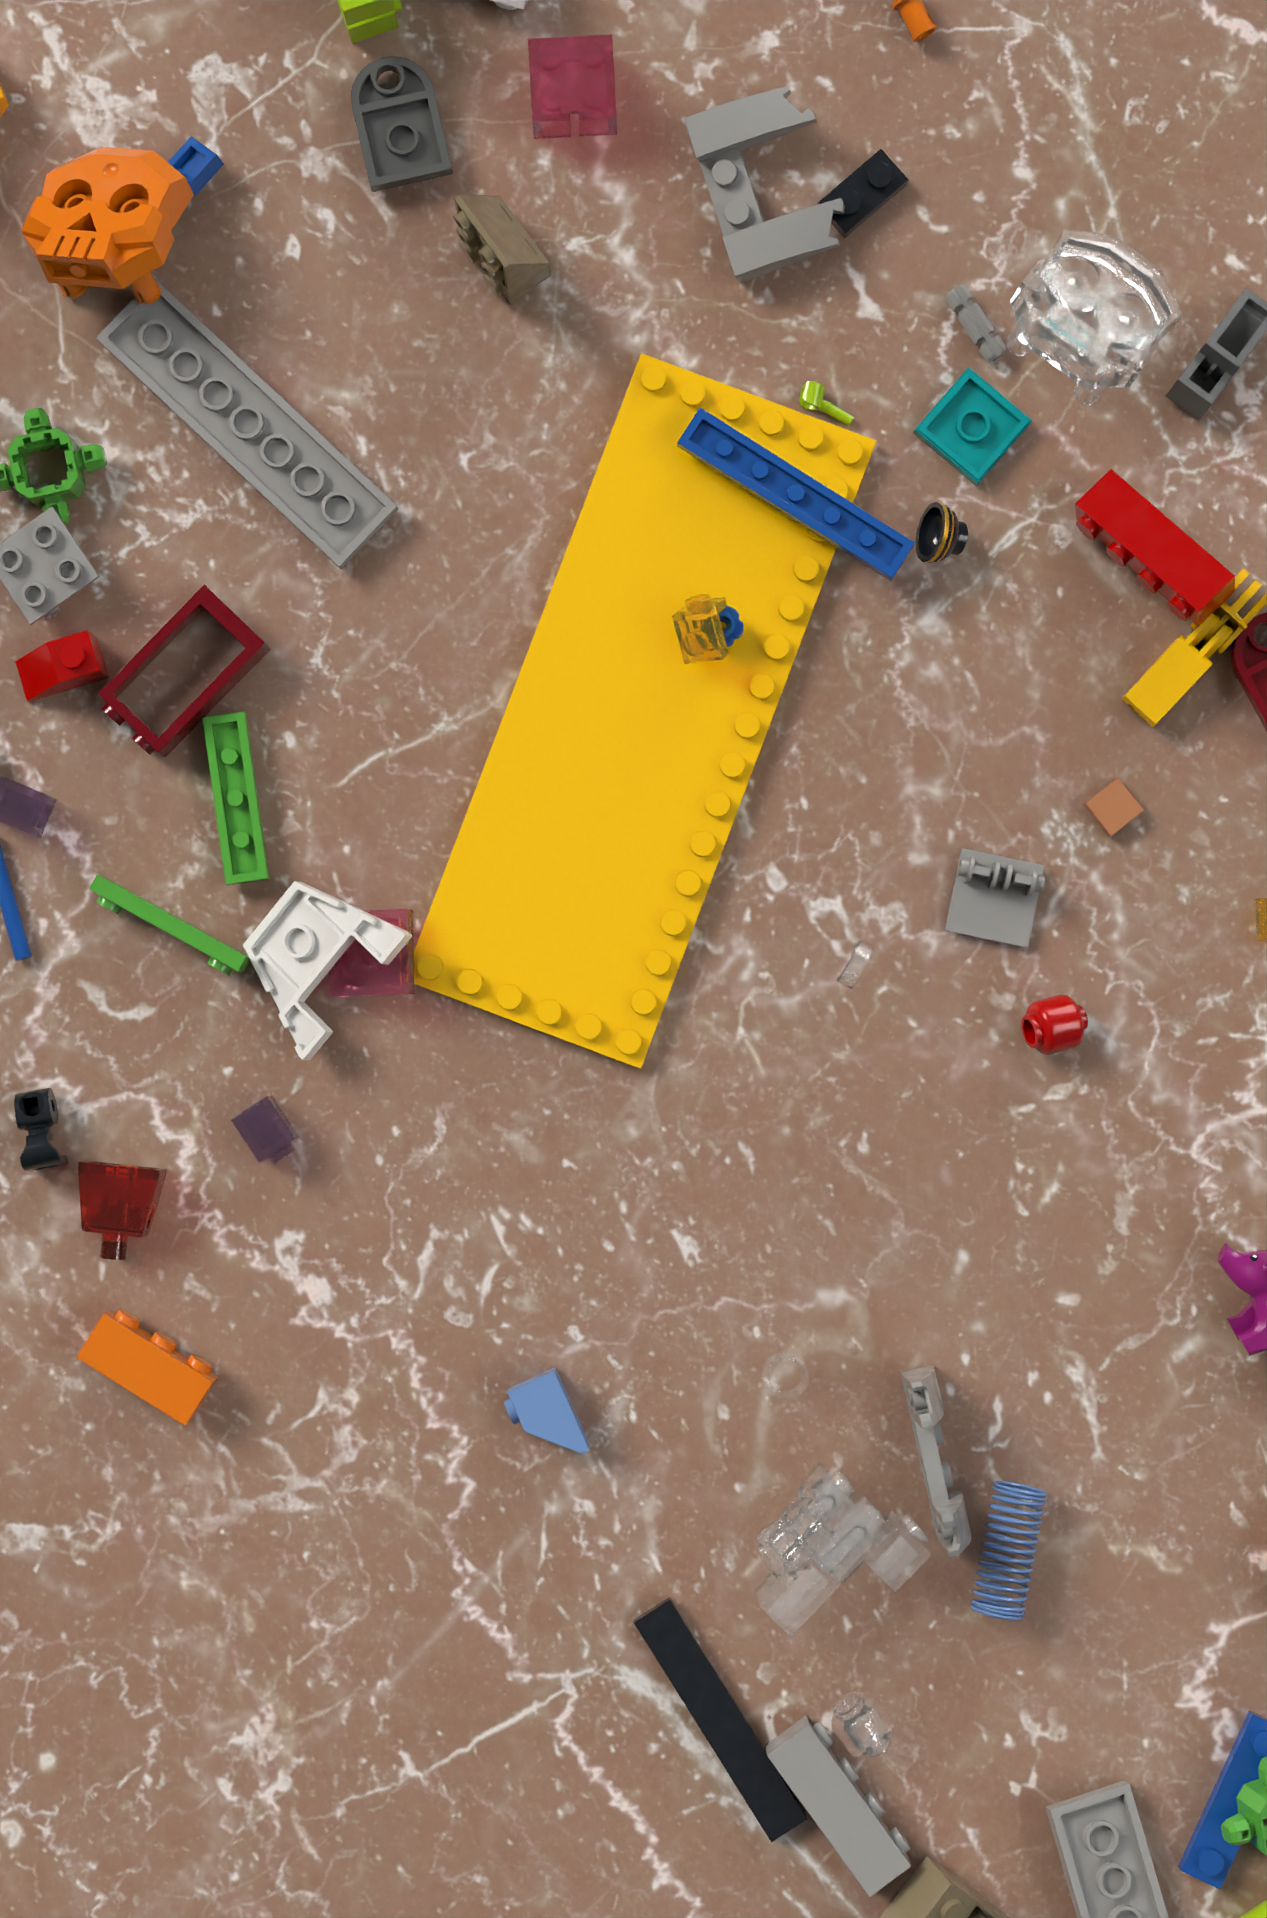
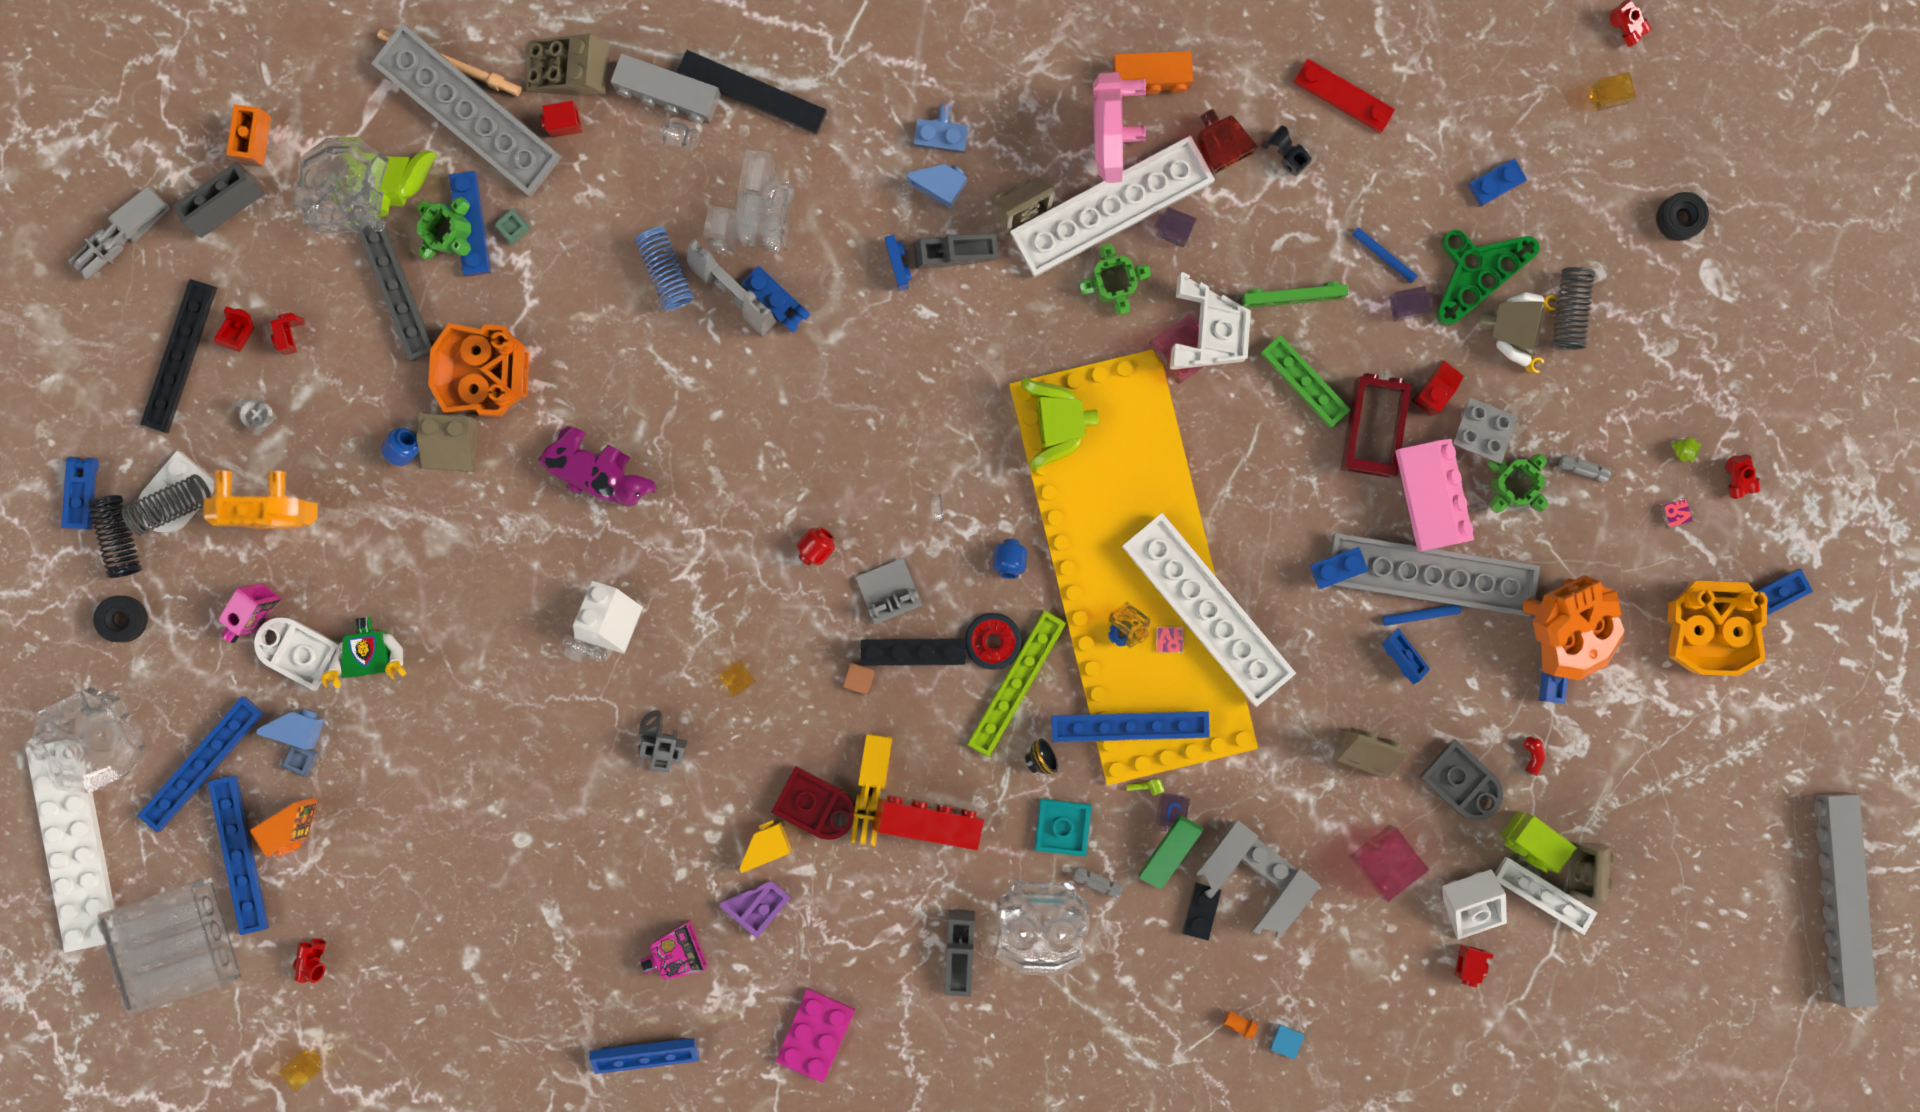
camera: 145 degrees right, 0 degrees up
(171, 524) = (1434, 494): none -> bright pink slope
(266, 1327) = (1108, 128): none -> bright pink brick
(273, 97) = (1538, 755): none -> red arm
(299, 383) = (1421, 614): none -> blue bar
(331, 1217) = (1112, 206): none -> white plate
(359, 340) = (1405, 656): none -> blue plate
(368, 516) = (1338, 568): none -> blue plate
(384, 1155) = (1140, 273): none -> bright green piece
(455, 1304) = (1023, 203): none -> dark tan slope
(496, 1481) = (941, 133): none -> medium blue plate
(582, 578) = (1208, 610): none -> white plate
(588, 1302) = (955, 250): none -> dark grey slope
(609, 966) = (1060, 421): none -> lime torso
(661, 574) = (1170, 639): none -> clear tile
(673, 1356) = (895, 252): none -> blue plate
(802, 829) = (1010, 559): none -> blue head
(813, 346) = (1170, 808): none -> clear purple brick
(854, 294) = (1170, 852): none -> green tile
(881, 1405) = (775, 298): none -> blue plate
(894, 762) = (993, 624): none -> wheel
(905, 658) = (1016, 683): none -> lime tile
(1012, 1861) = (561, 119): none -> red brick
(1018, 792) = (913, 652): none -> black brick
(1178, 1755) = (512, 226): none -> sand green tile

